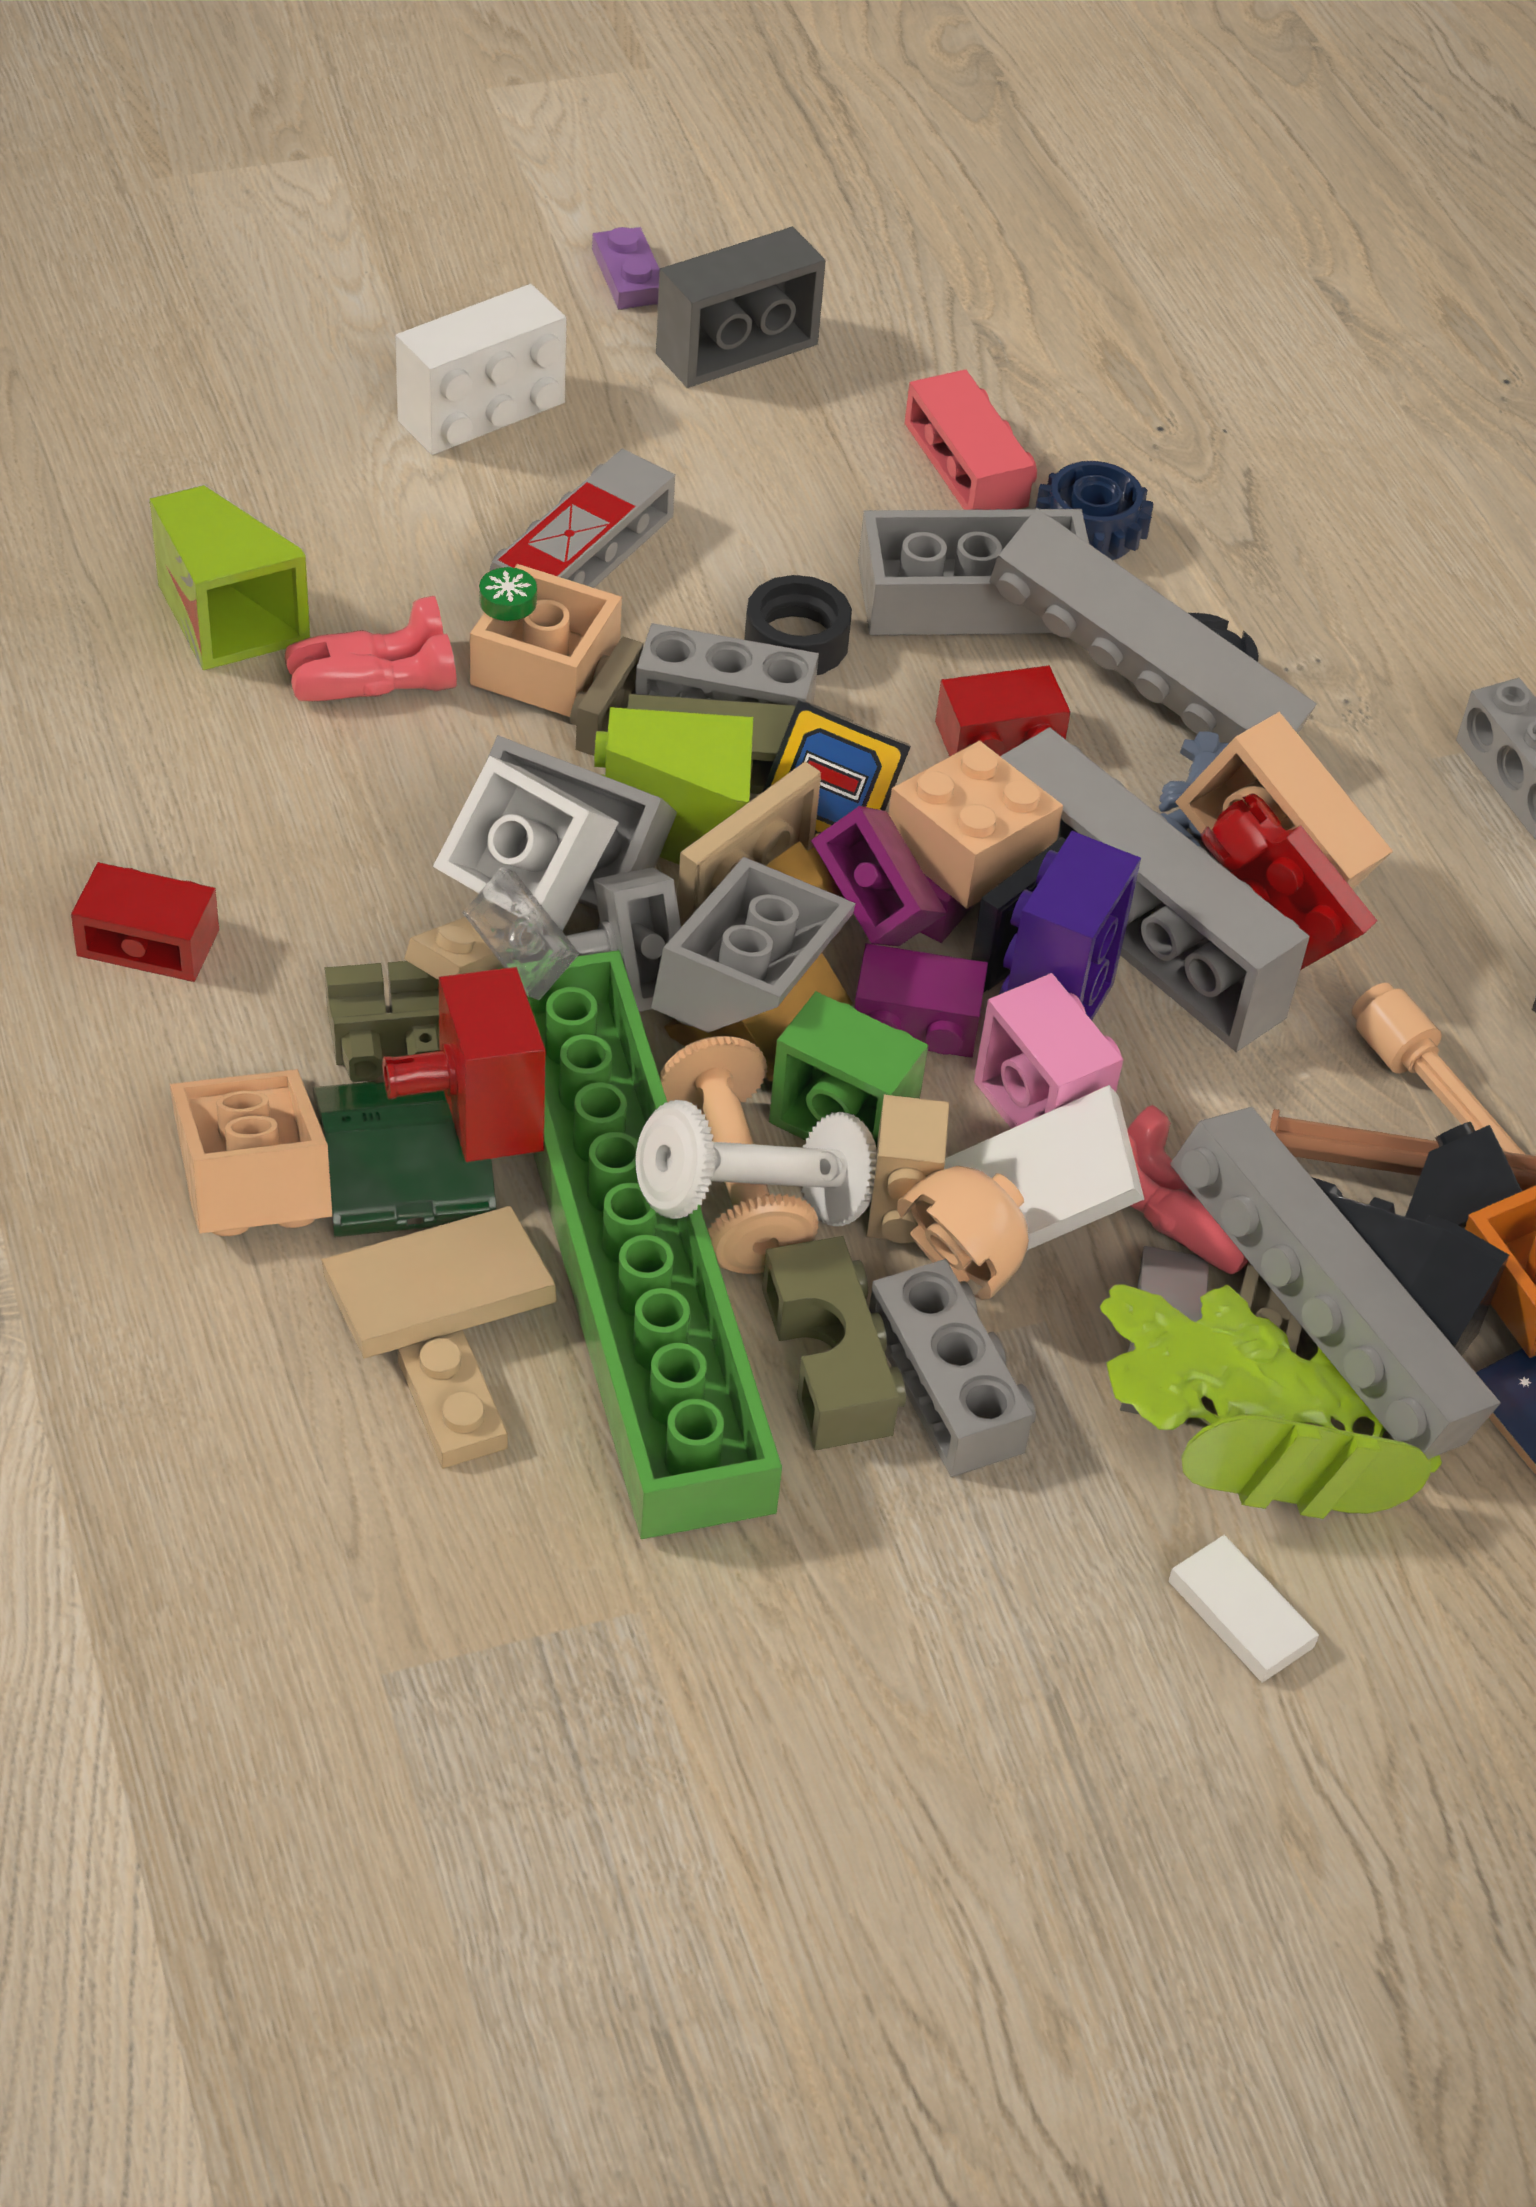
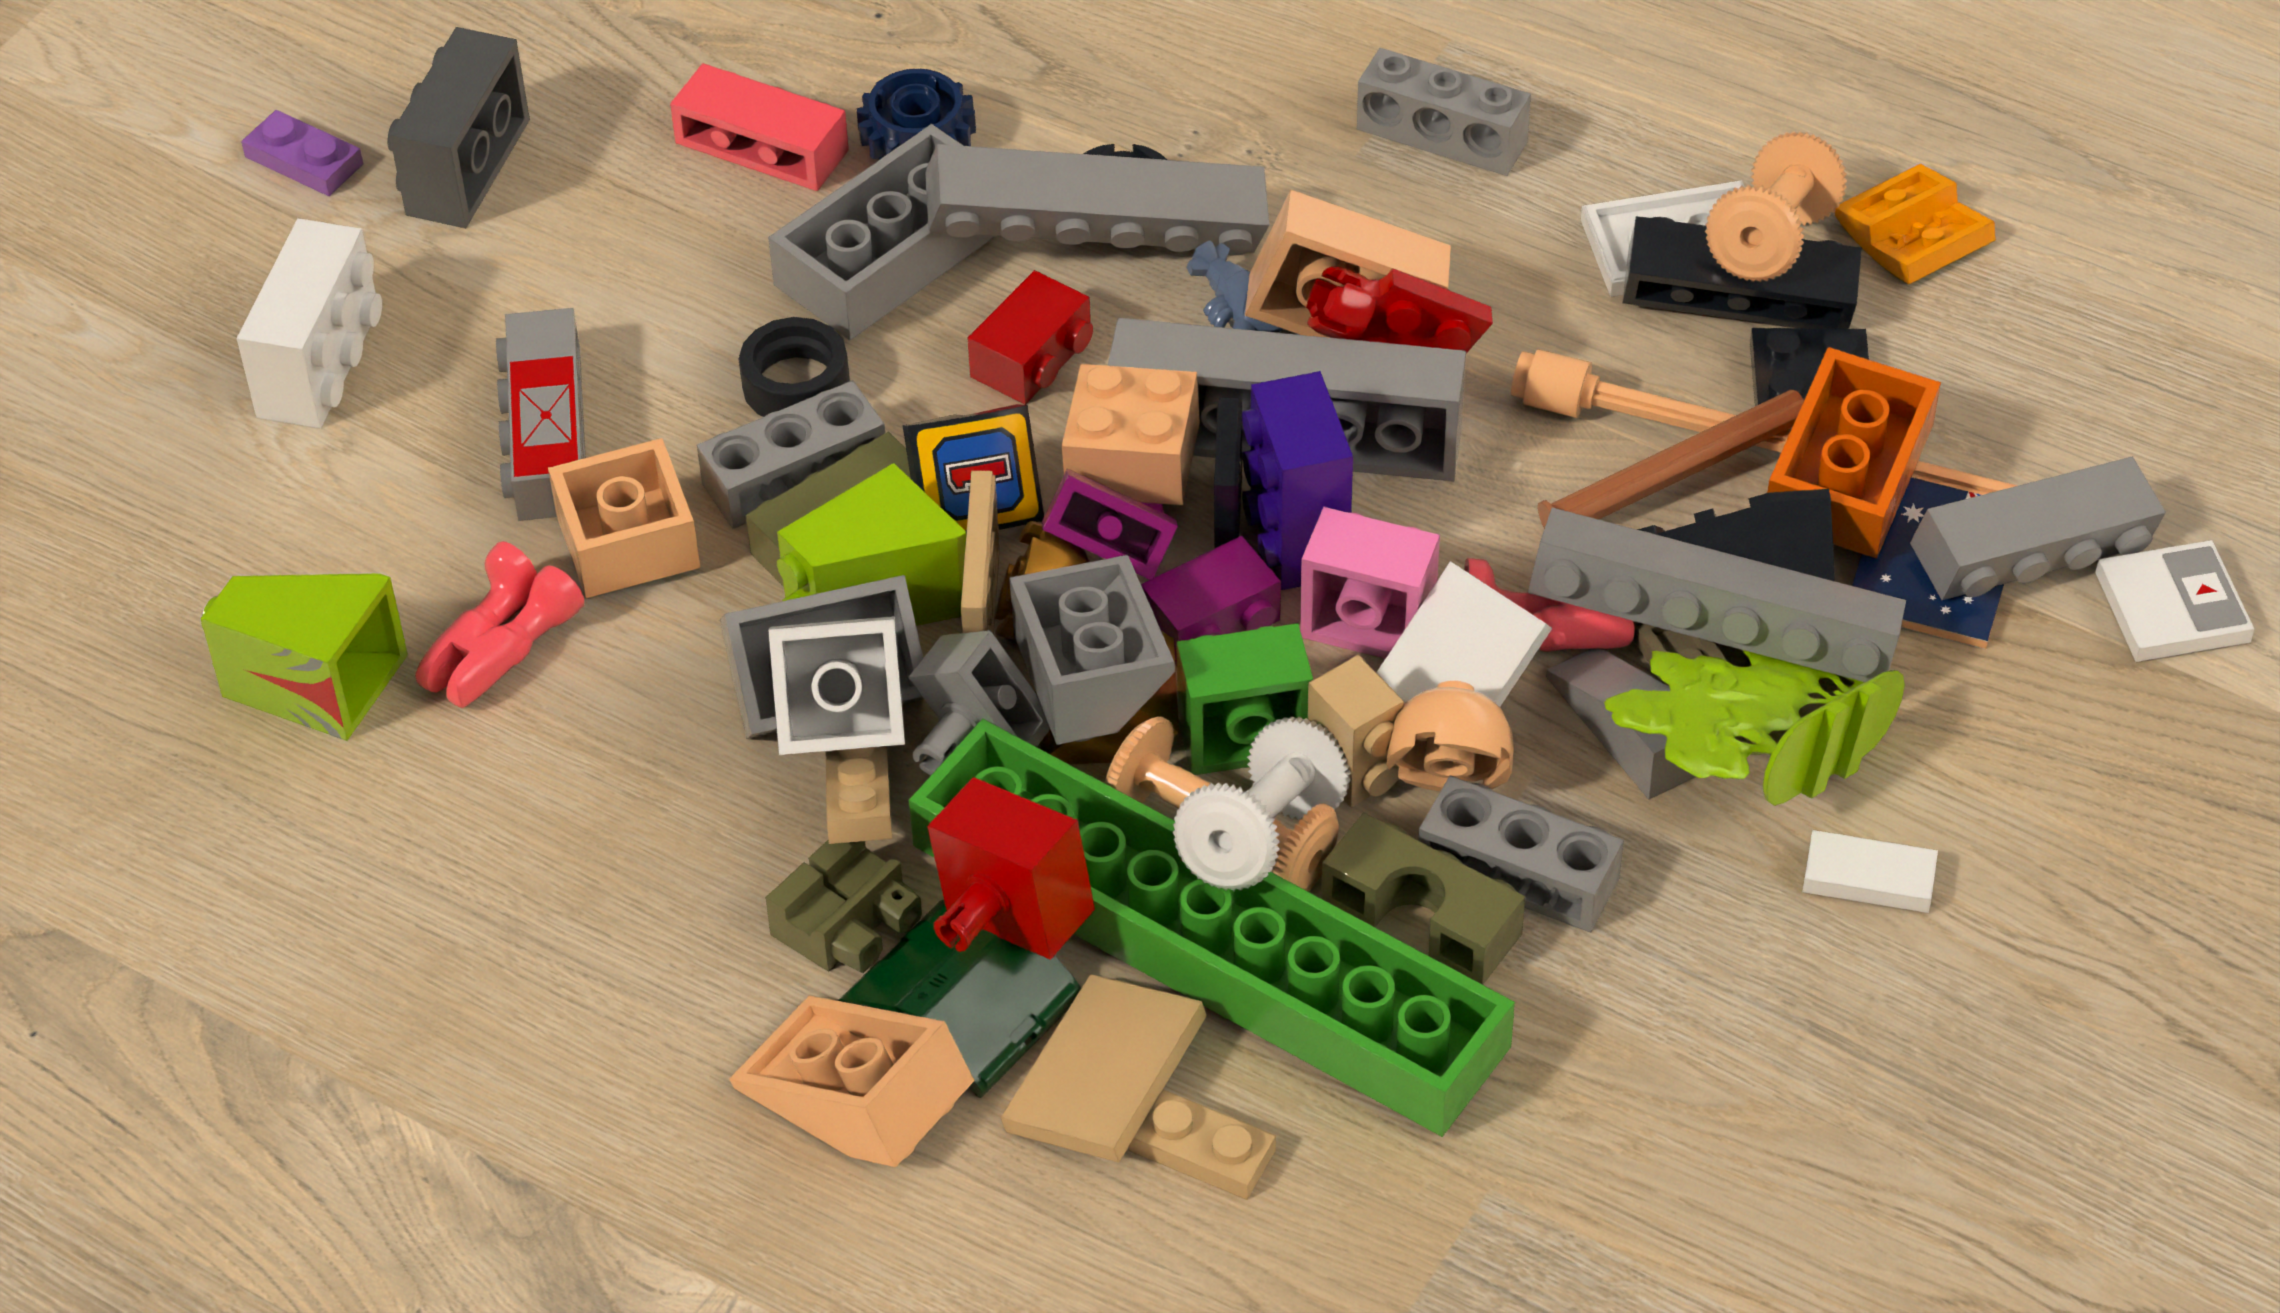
camera: 35 degrees left, 0 degrees up
(145, 921) = (566, 969): red brick -> none
(508, 594) = (578, 496): green tile -> none
(520, 932) = (910, 755): clear plate -> none
(610, 688) = (719, 545): dark tan plate -> none
(1462, 1176) = (1727, 459): black slope -> none

